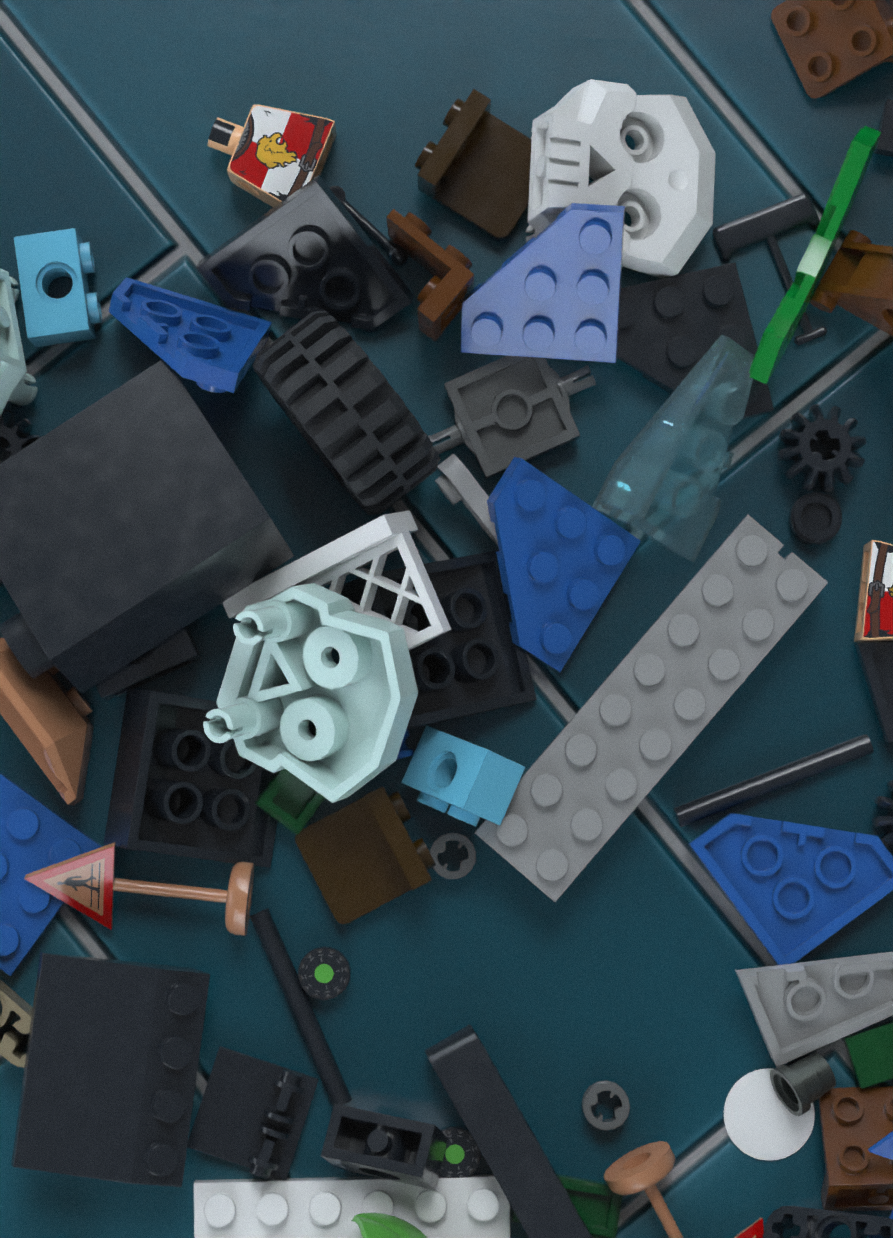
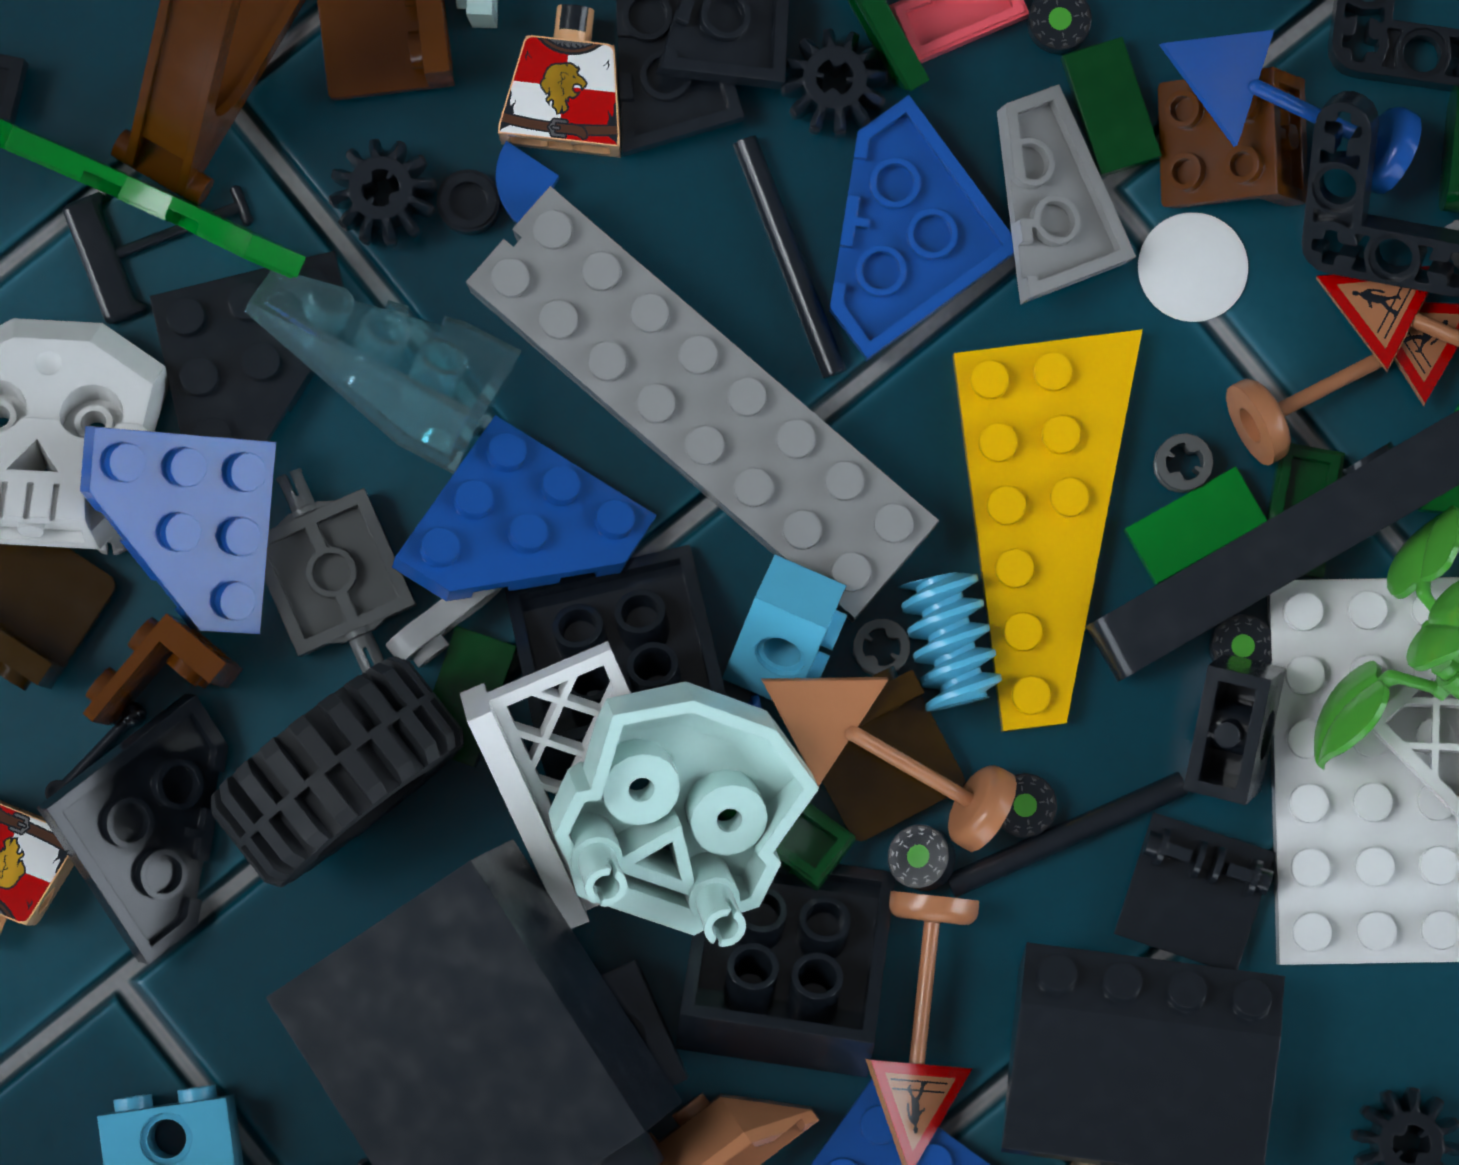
camera: 85 degrees left, 0 degrees up
(191, 335) = (234, 967): blue plate -> none
(281, 888) = (921, 857): none -> black tile
(393, 809) = (827, 714): none -> nougat piece
(437, 523) = (468, 663): none -> dark green tile
(458, 912) = (949, 640): none -> medium azure piece
(554, 1115) = (1195, 525): none -> green tile
(596, 987) = (1041, 472): none -> yellow wing
(802, 1082) = (1155, 225): pearl dark grey piece -> none
(833, 560) = (521, 181): none -> blue tile

